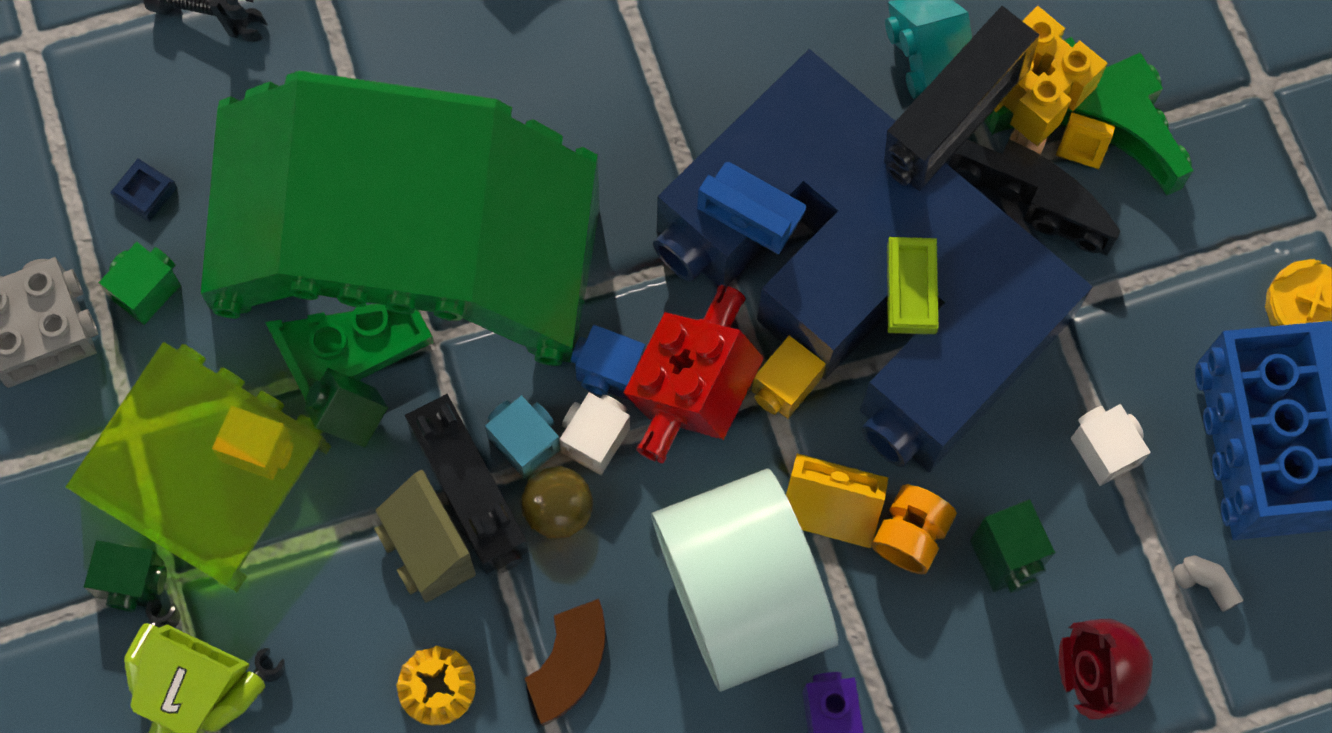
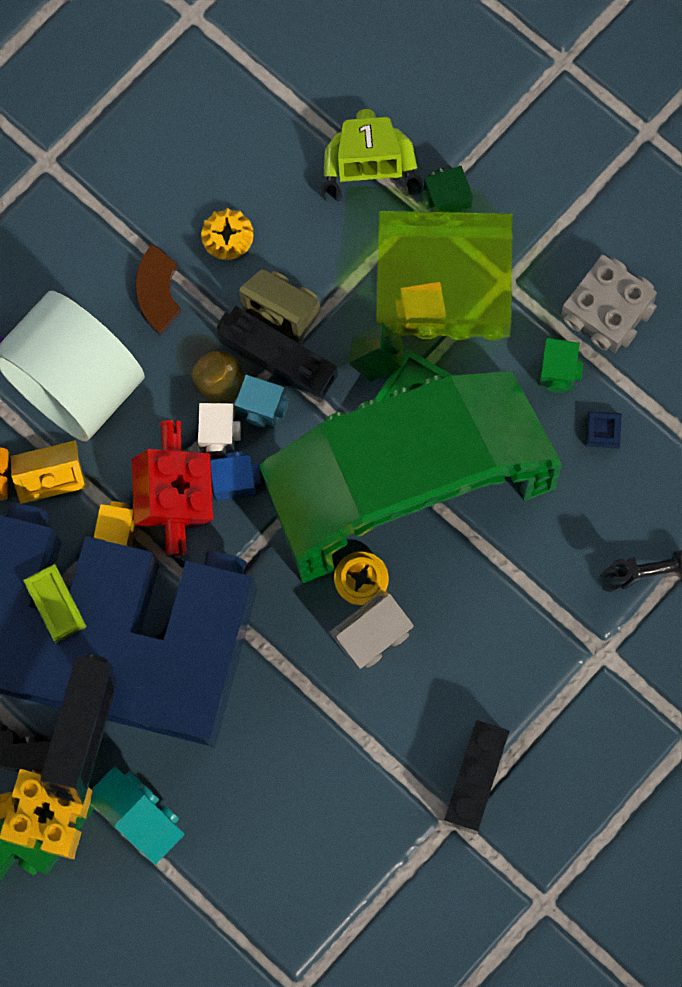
camera: 160 degrees right, 5 degrees up
(556, 97) = (372, 630): none -> light grey brick
(750, 206) = (186, 598): blue panel -> none

